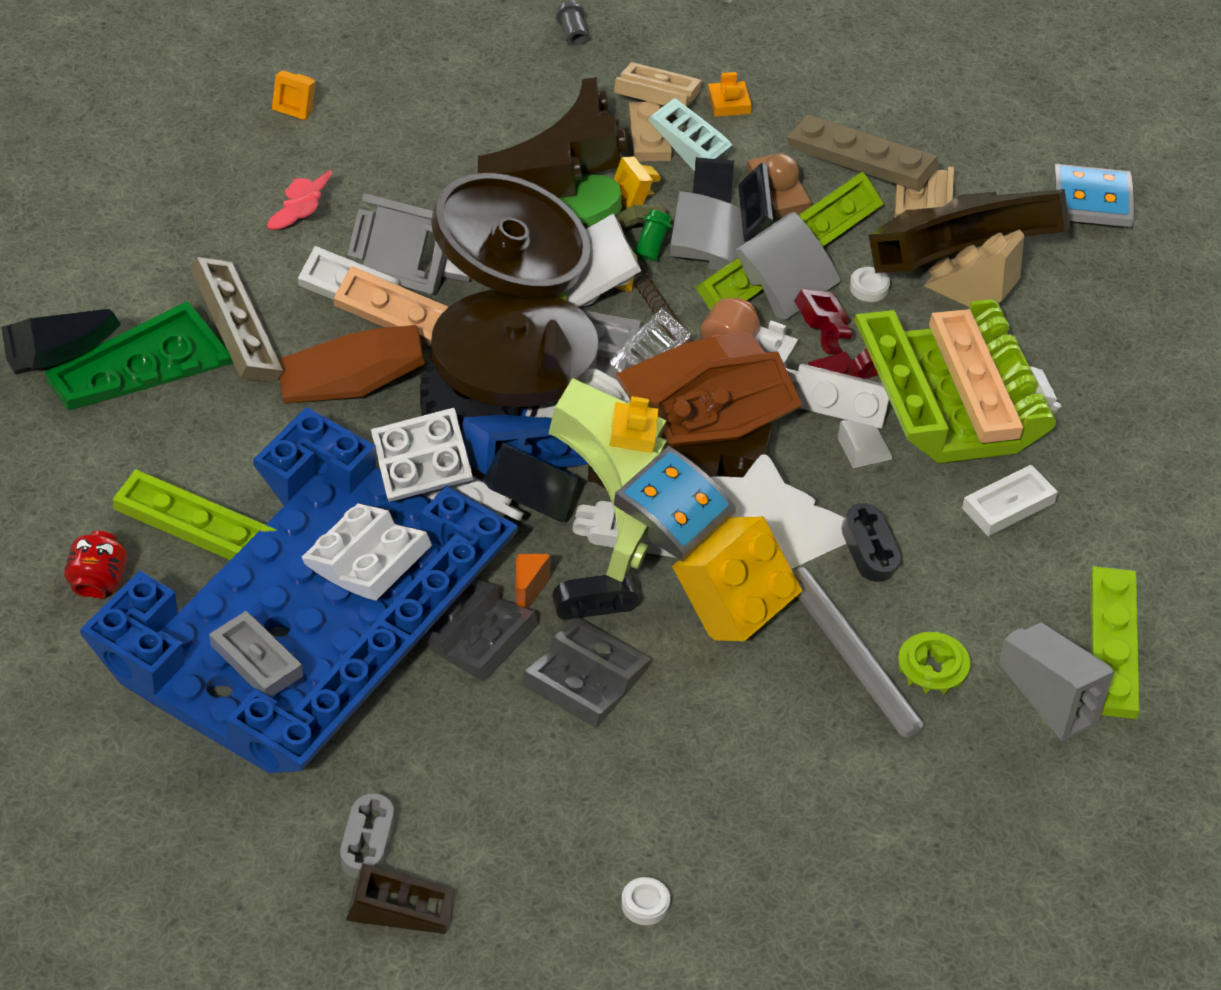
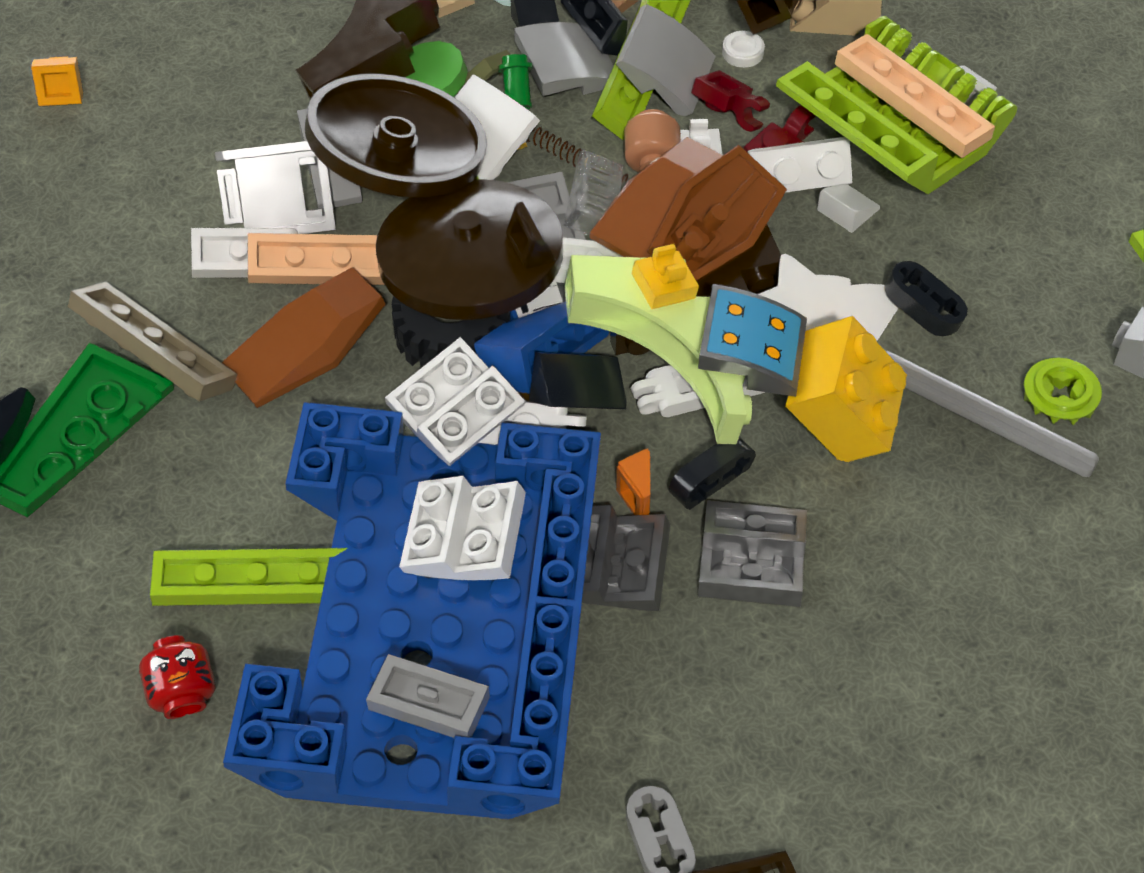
camera: 25 degrees left, 5 degrees up
(302, 202) = (138, 188): coral piece -> none
(635, 181) = (464, 33): yellow tile -> none
(645, 901) = (975, 766): white tile -> none
(1009, 500) = (1016, 202): white plate -> none

